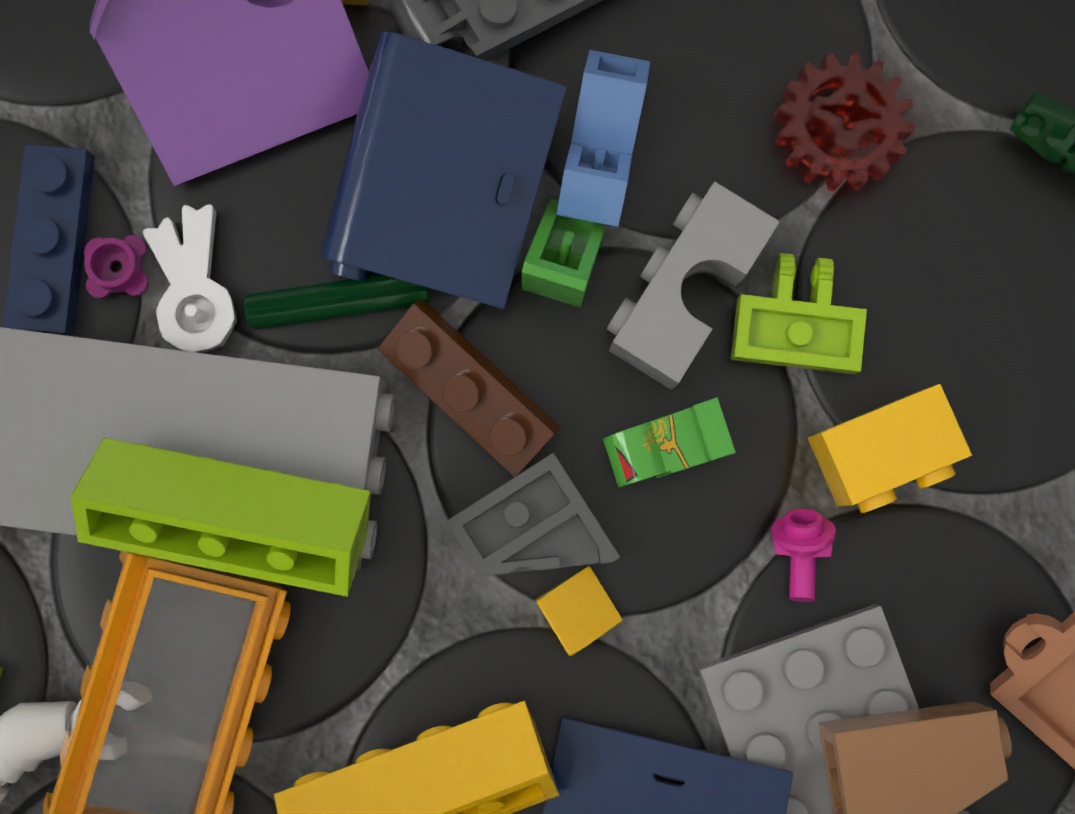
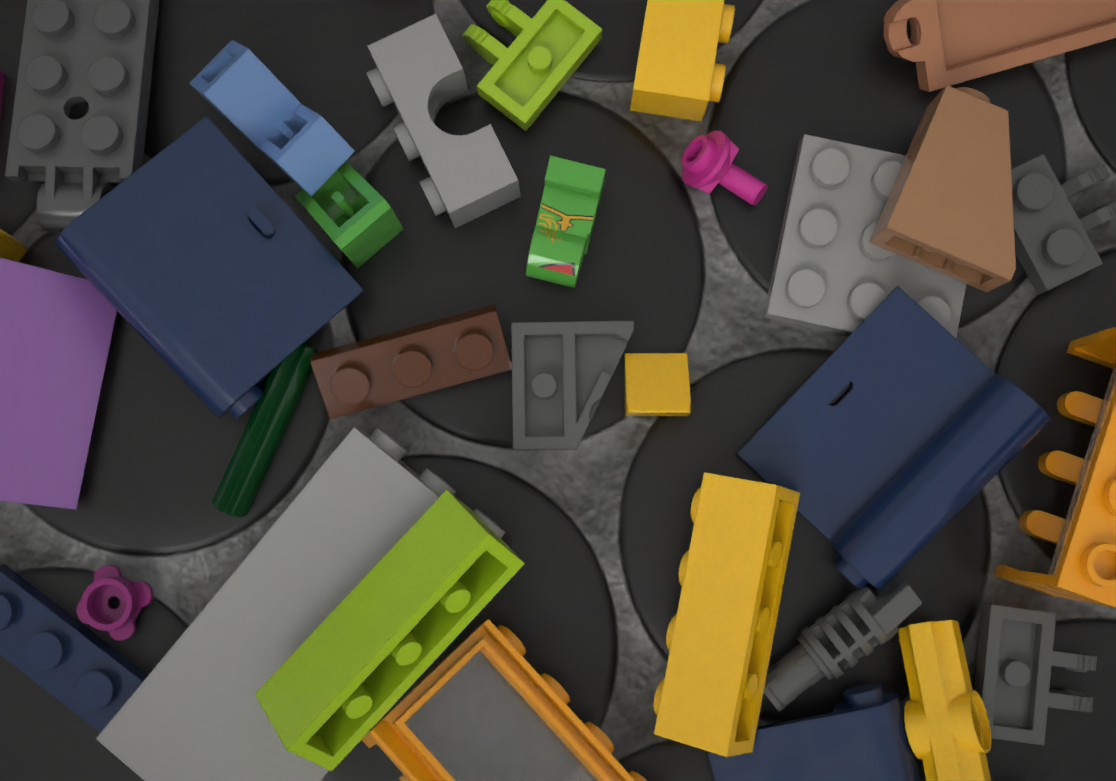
camera: 50 degrees left, 0 degrees up
(194, 309) = (193, 555): white piece -> none

